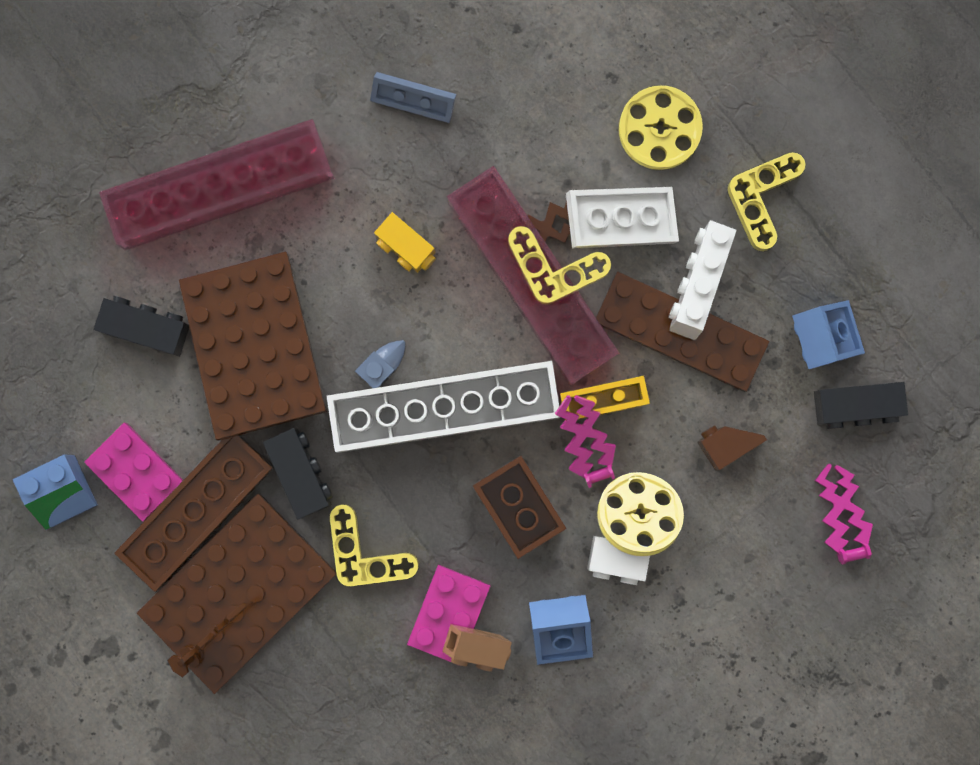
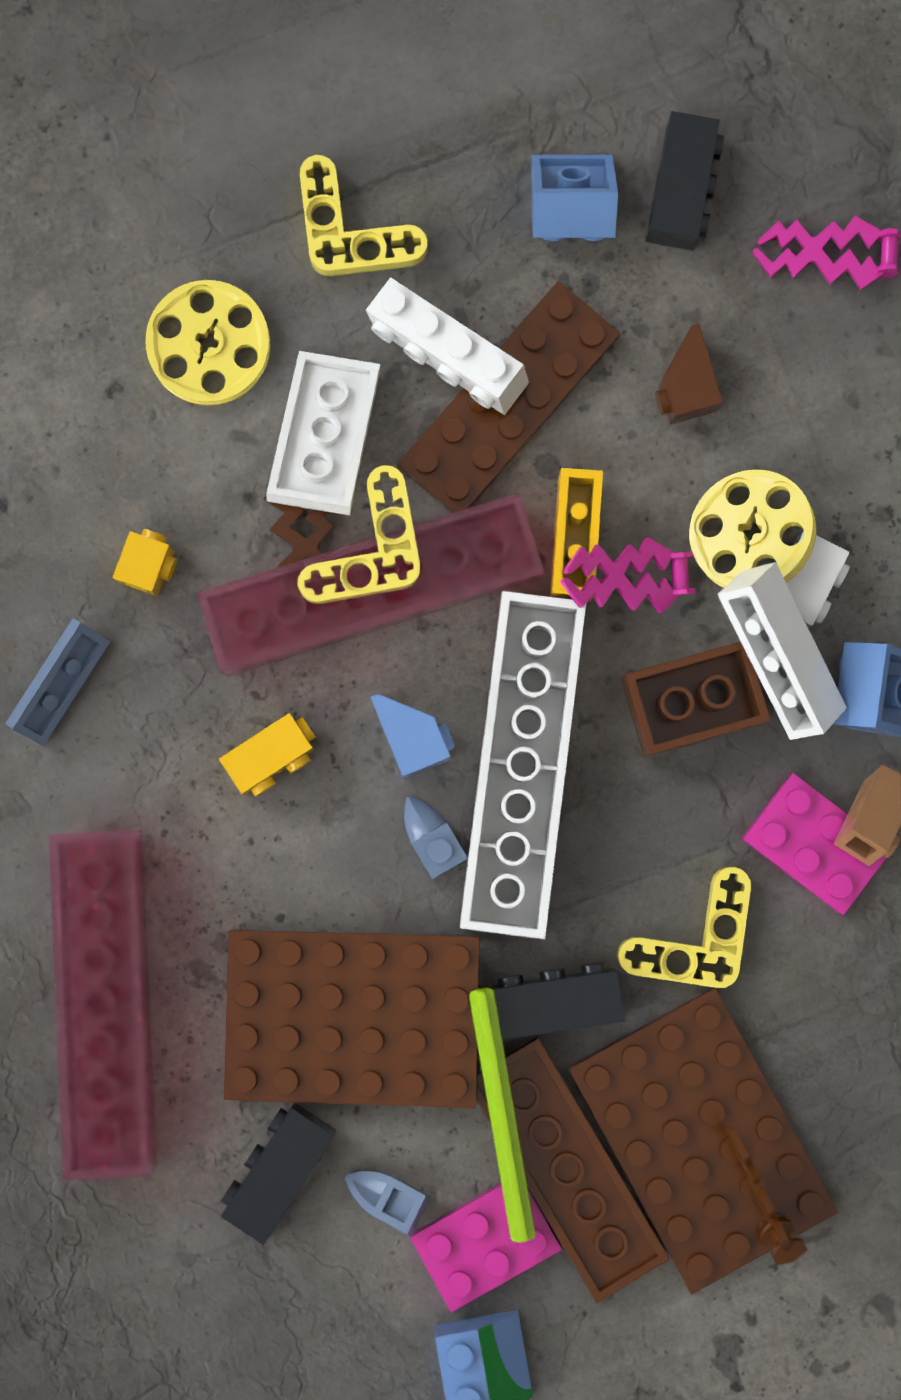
camera: 80 degrees left, 0 degrees up
(144, 402) = (388, 1199): none -> sand blue plate
(216, 457) = (502, 1115): none -> lime axle
(441, 330) = (413, 736): none -> medium blue slope
(505, 129) = (145, 562): none -> yellow brick
(565, 553) = (782, 651): none -> white brick

